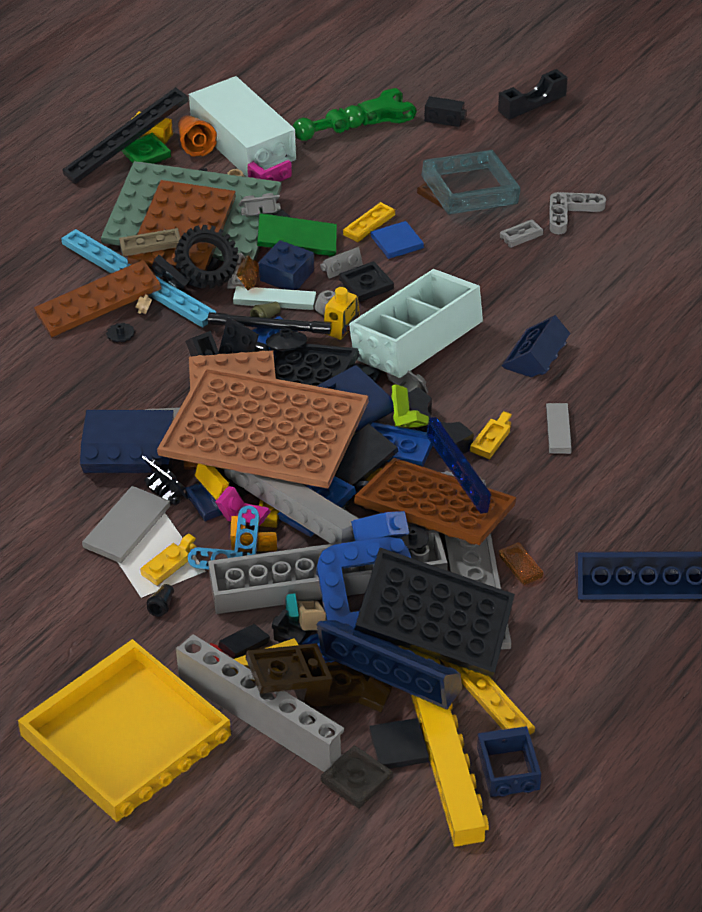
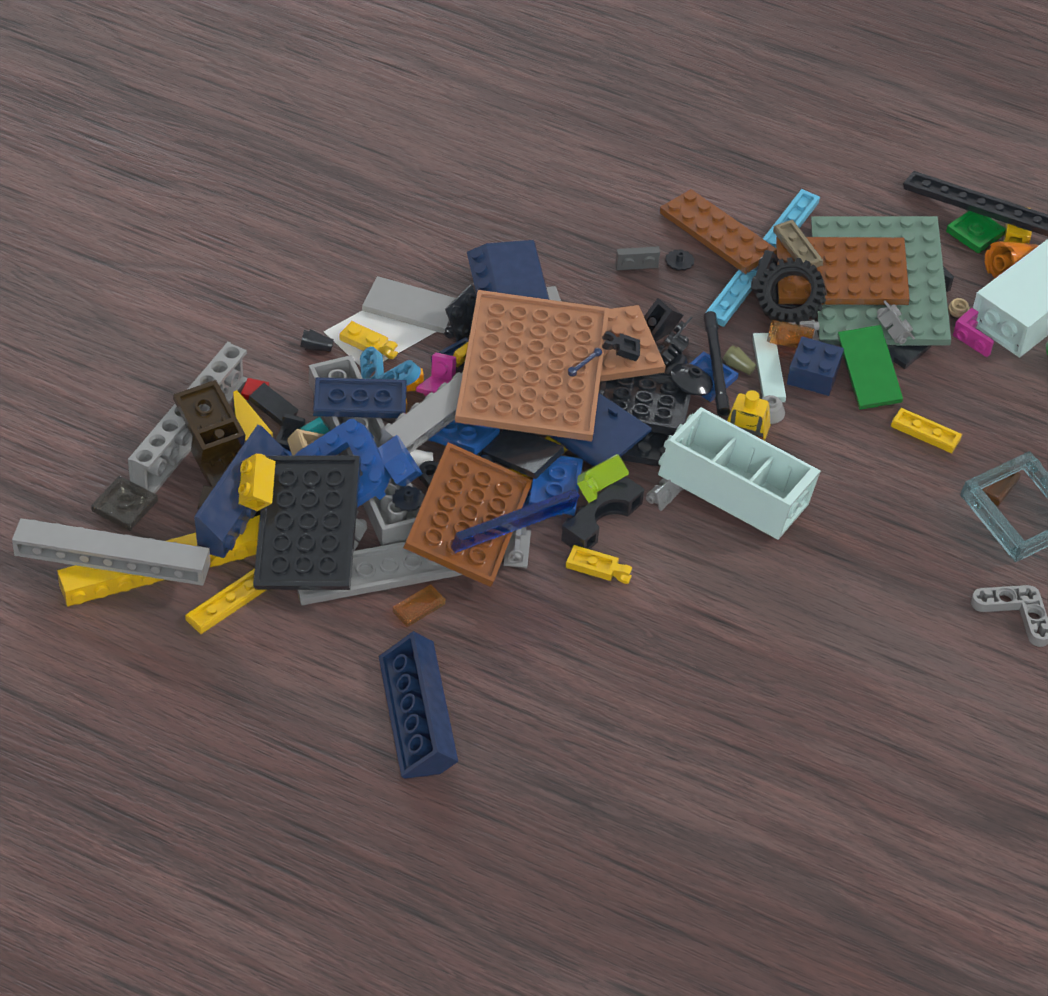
camera: 75 degrees right, 5 degrees up
(116, 357) = (637, 258): none -> dark grey plate
(124, 729) = (156, 338): yellow panel -> none
(143, 304) = (721, 267): tan plate -> none
(255, 363) = (624, 345): none -> black plate
(273, 558) = (359, 397): none -> dark blue tile
(285, 396) = (572, 371): none -> dark blue hinge
(342, 262) = (841, 413): light grey hinge -> none
(366, 281) = (817, 436): black plate -> none
(392, 633) = (256, 482): none -> yellow brick
(397, 239) = (902, 457): blue tile -> none
(399, 743) = (167, 524): black tile -> none
(445, 777) = (111, 551): none -> light grey brick
(514, 740) = (148, 594): dark blue window -> none
(521, 233) = (953, 569): light grey tile -> none
(537, 348) = (747, 593): dark blue slope -> none
(558, 428) = (628, 622): light grey tile -> none

